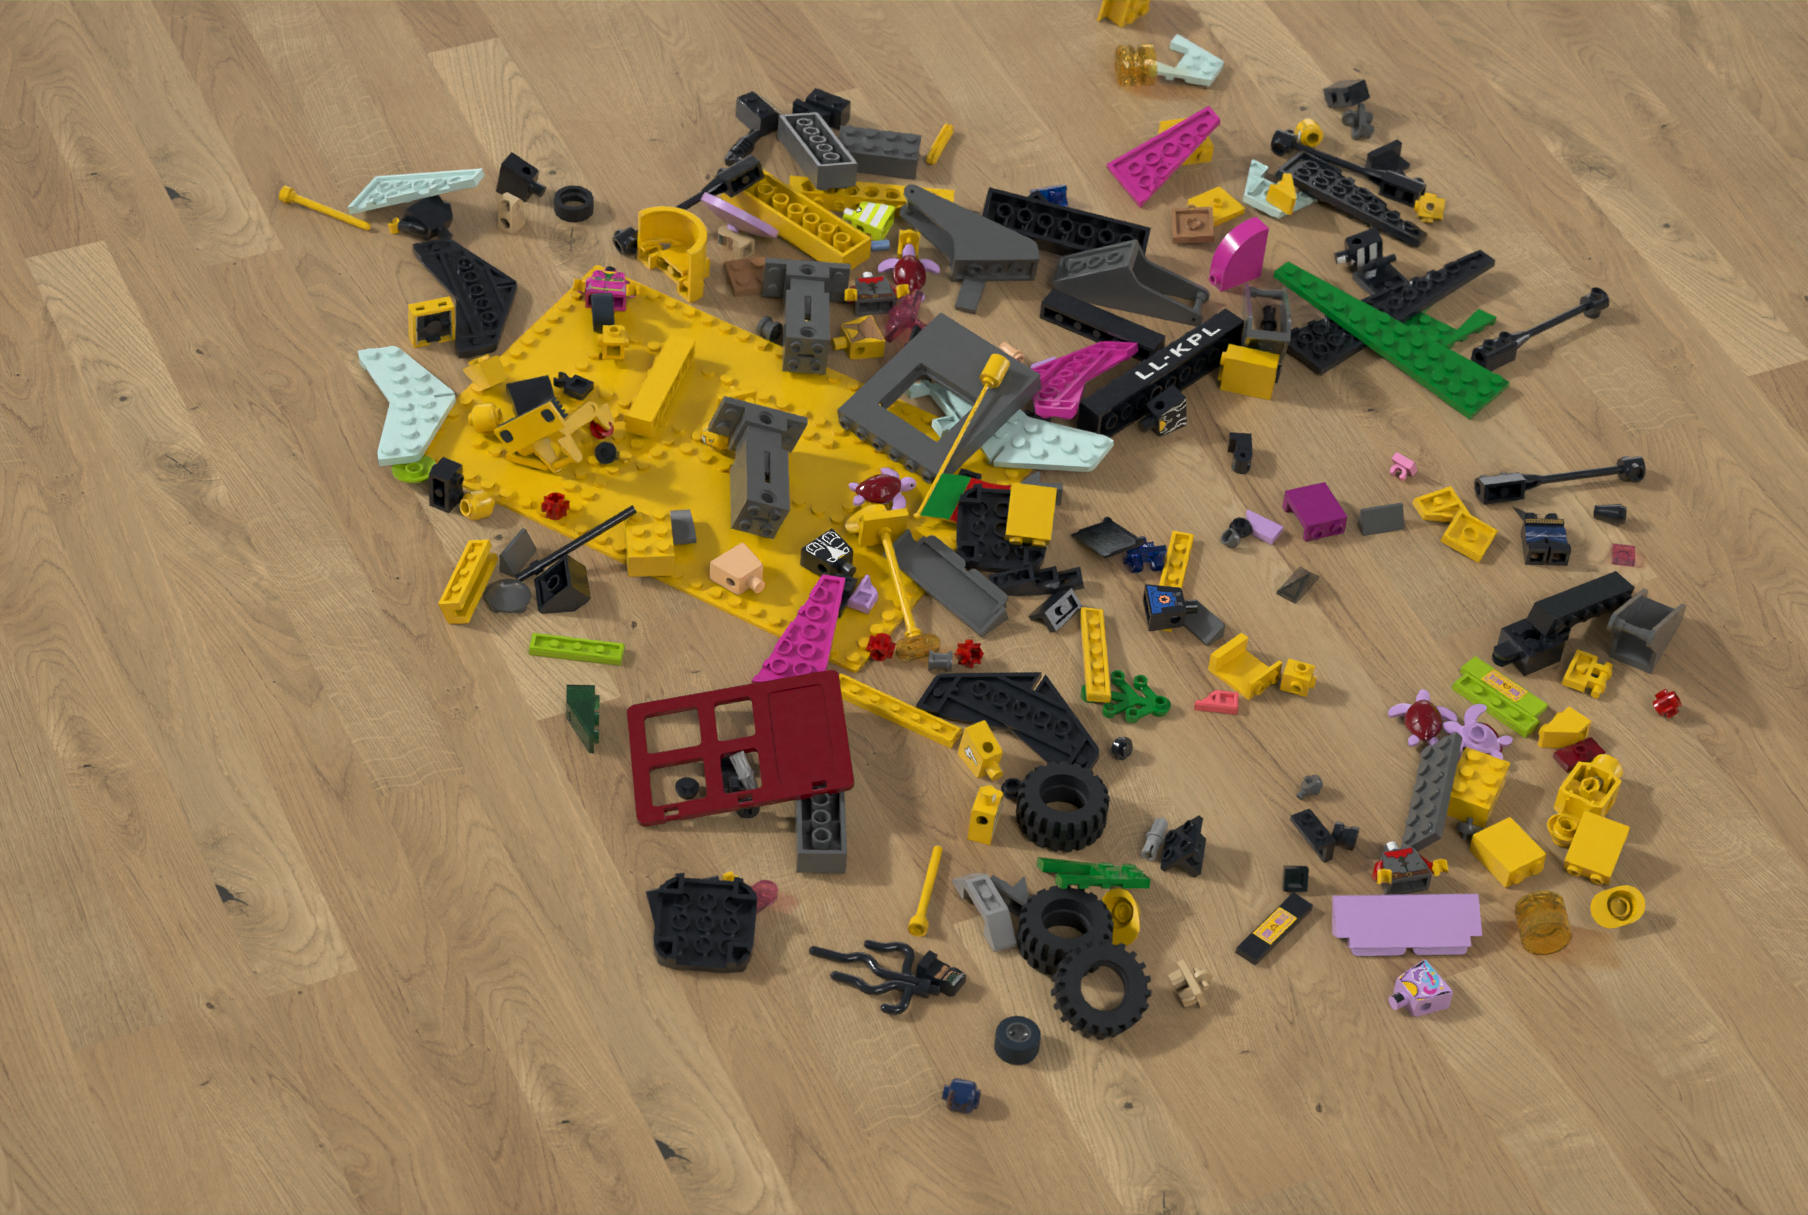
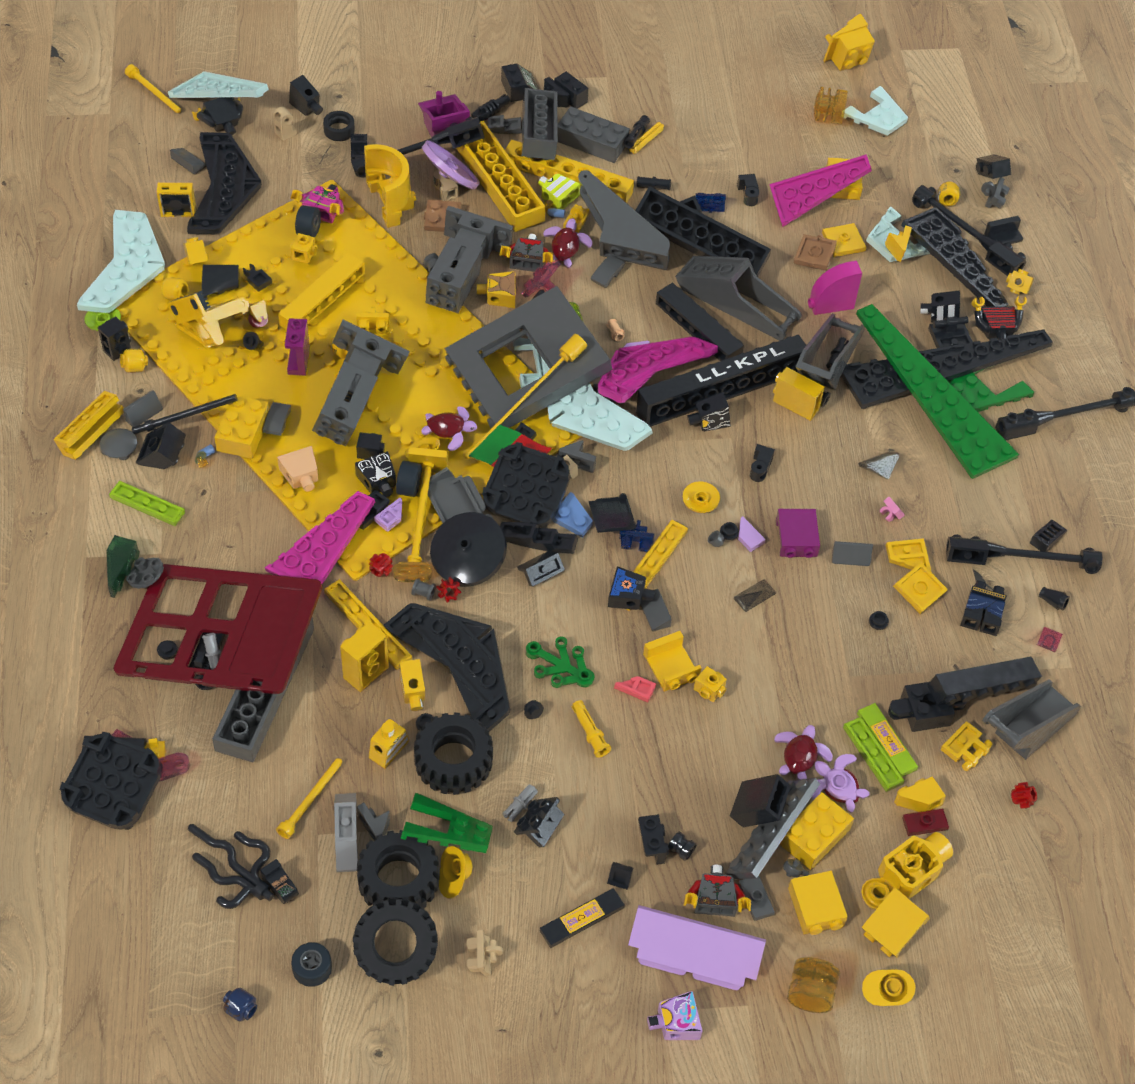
camera: 20 degrees right, 10 degrees up
(411, 279) = (187, 160): none -> dark grey slope
(555, 506) = (188, 377): red gear -> none
(608, 221) = (358, 142): none -> black slope
(613, 585) = (202, 454): none -> clear yellow arm
(619, 716) = (145, 572): none -> dark grey dish
(673, 453) = (298, 342): none -> magenta panel
(698, 163) = (442, 112): none -> magenta piece
(774, 163) = (500, 125): none -> dark grey slope
(804, 529) = (369, 445): none -> black brick
(870, 551) = (408, 478): none -> black wheel
(920, 734) = (364, 656): none -> yellow brick
(927, 139) = (633, 136): none -> black pin
(970, 605) = (468, 548): none -> black dish
(973, 190) = (653, 182): none -> black pin
(1030, 514) = (548, 481): yellow brick -> none
(1065, 553) = (573, 516): none -> medium blue wing
(1085, 173) = (750, 188): none -> black leg
(1095, 655) = (551, 618): yellow tile -> none
(1194, 500) = (701, 491): none -> yellow dish
(1199, 756) = (594, 735): none -> yellow pin
(1310, 786) = (675, 789): dark grey piece -> none
(1369, 425) = (881, 464): none -> clear smoke slope
(1407, 770) = (760, 800): none -> black brick
(1424, 252) = (998, 321): none -> black torso
(1440, 577) = (878, 620): none -> black plate
(1456, 871) = (760, 903): none -> dark grey plate
(1575, 456) = (1042, 544): none -> black slope

